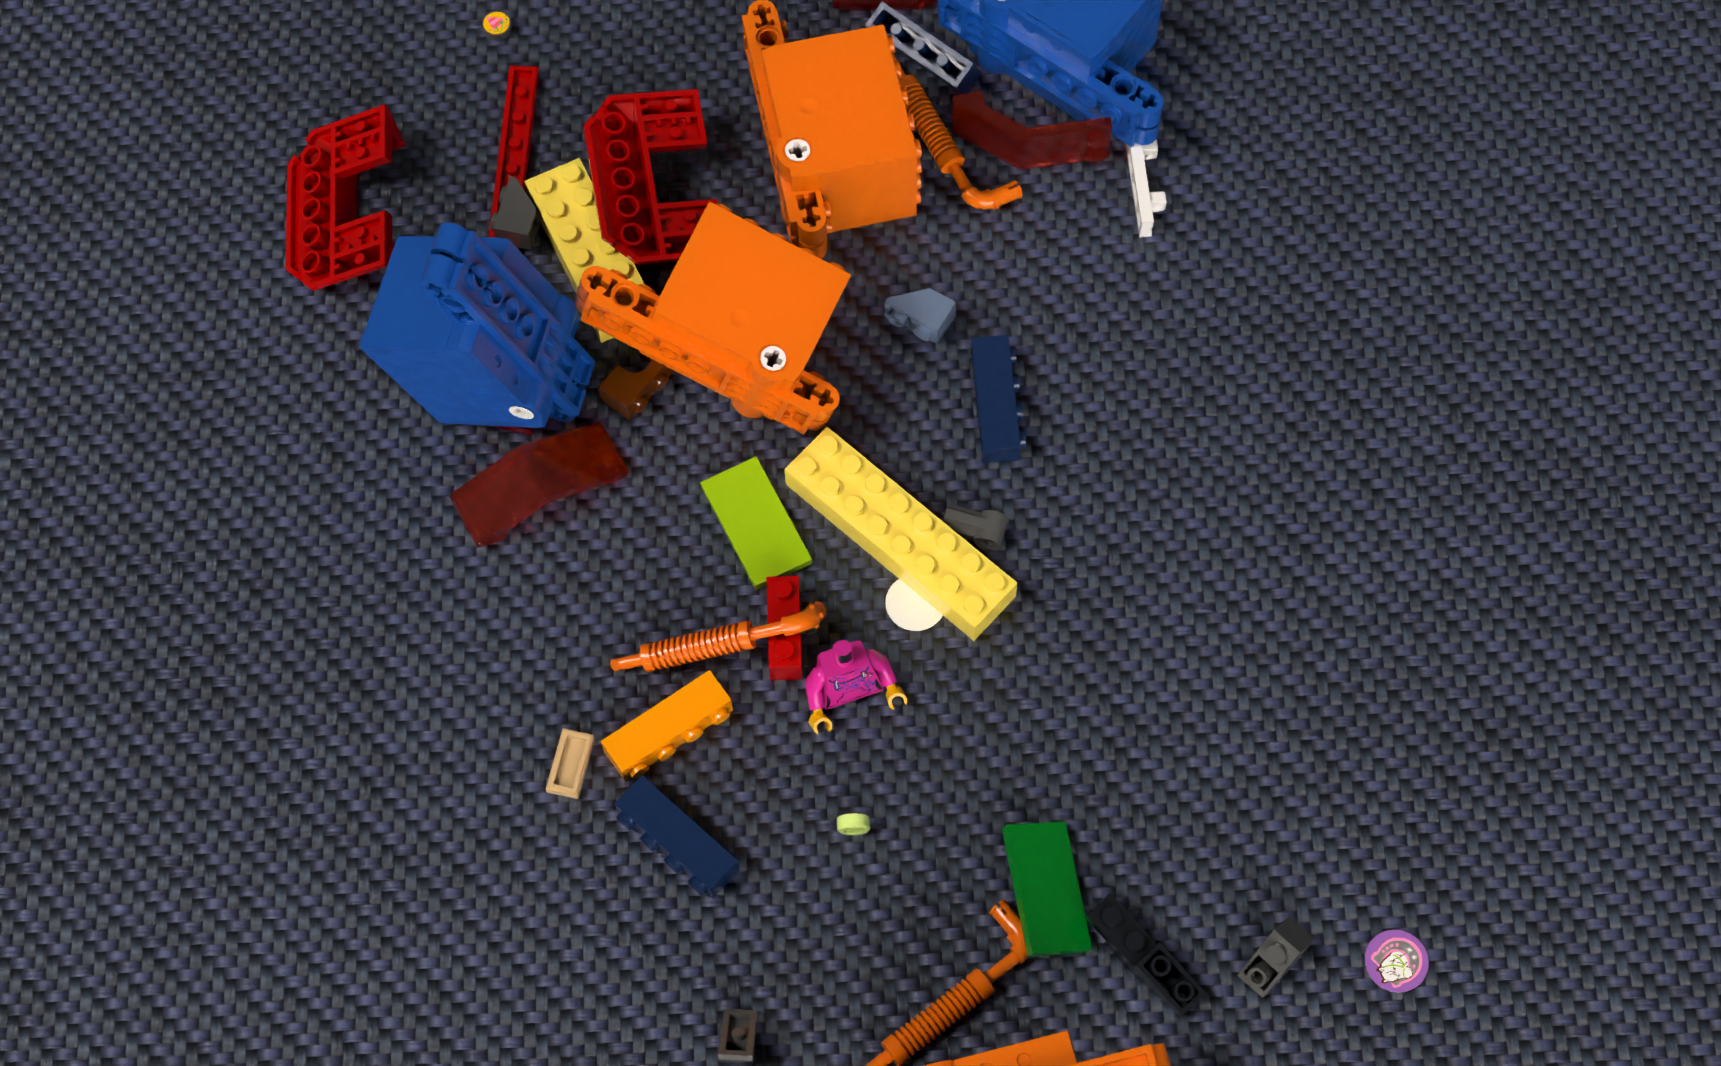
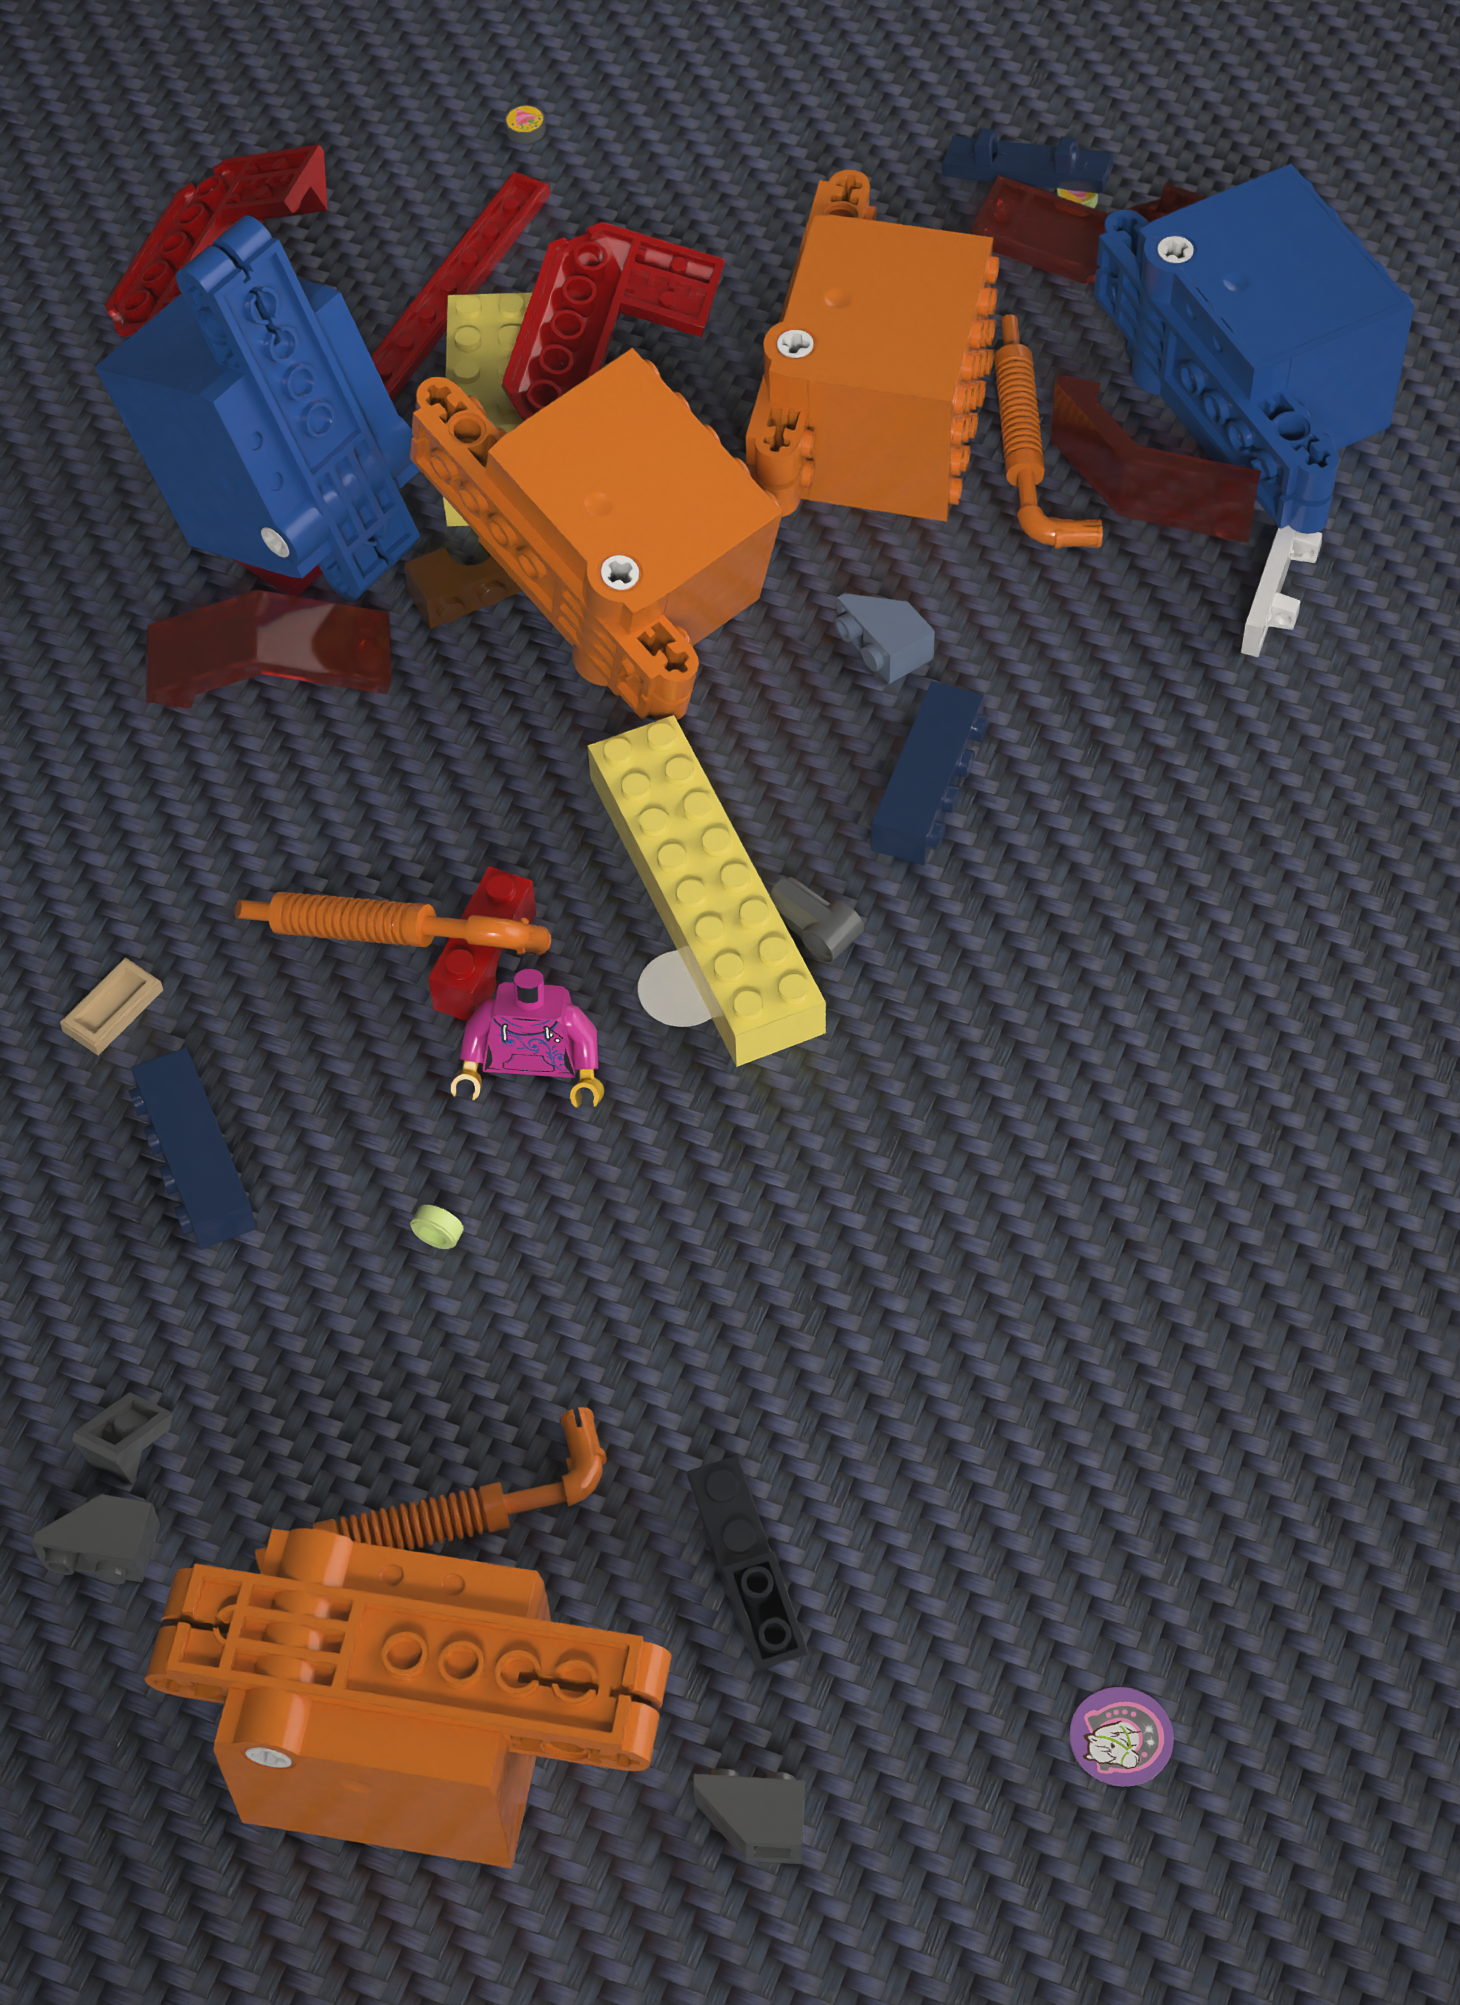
camera: 25 degrees right, 10 degrees down
(516, 216) = (414, 336): dark grey slope -> none
(667, 726) = (260, 1005): light orange brick -> none
(755, 522) = (523, 804): lime tile -> none
(926, 50) = (1057, 319): brick -> none
(1046, 889) = (655, 1419): green tile -> none
(1275, 956) = (939, 1647): dark grey slope -> none

